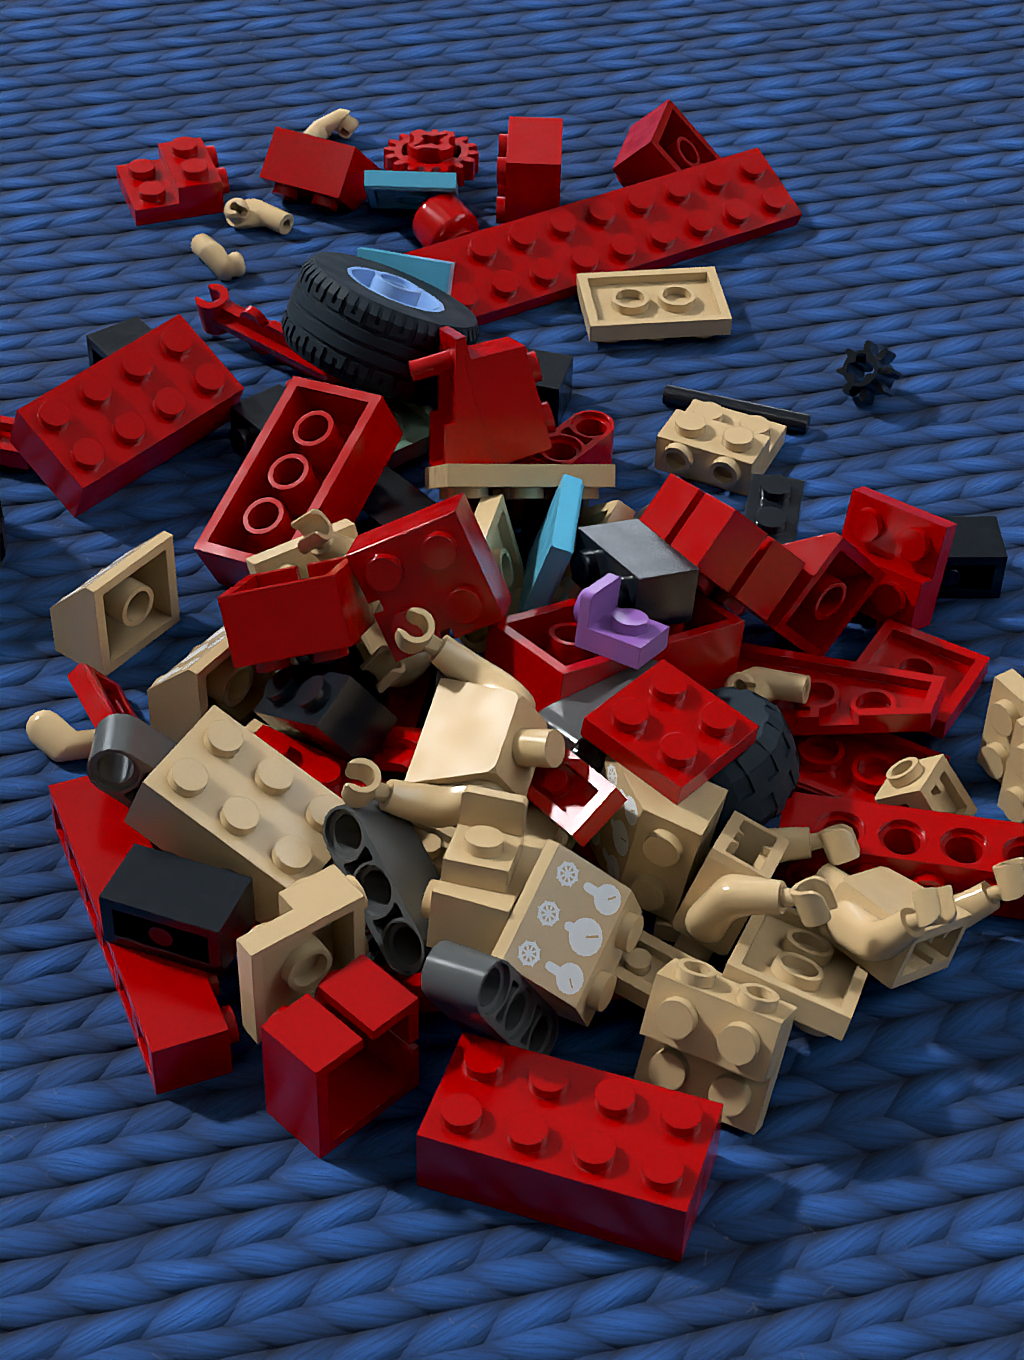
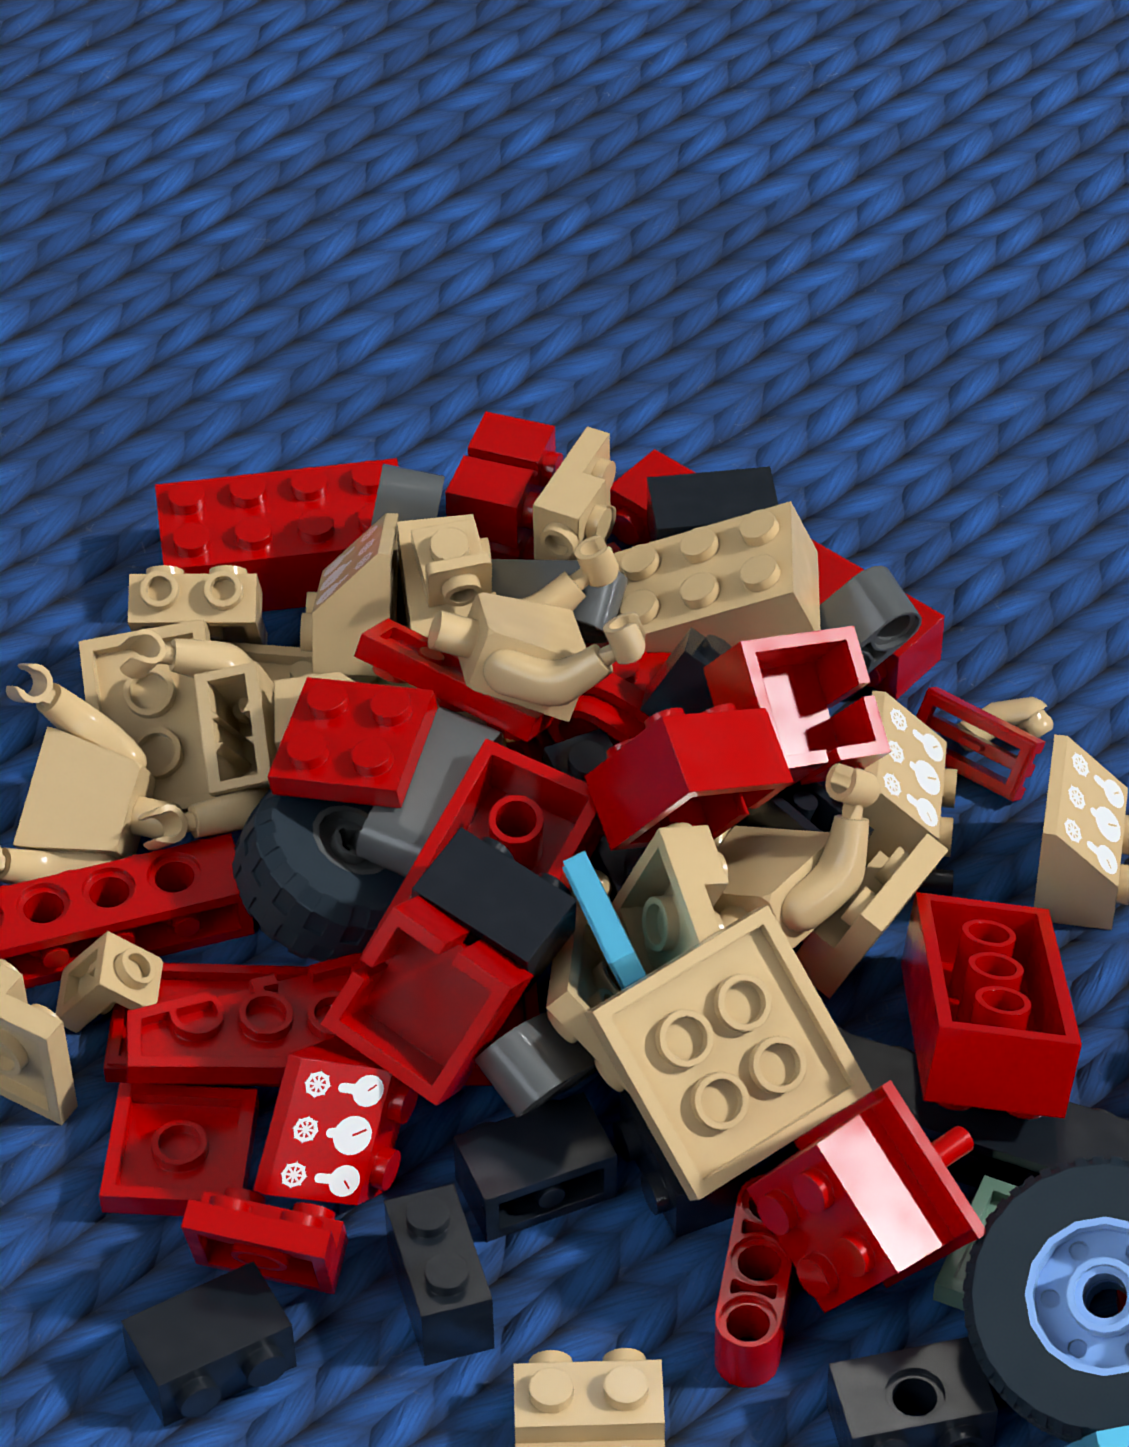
camera: 155 degrees right, 5 degrees up
(616, 632) = (454, 804): medium lavender bracket -> none
(772, 684) = (322, 984): tan arm -> none

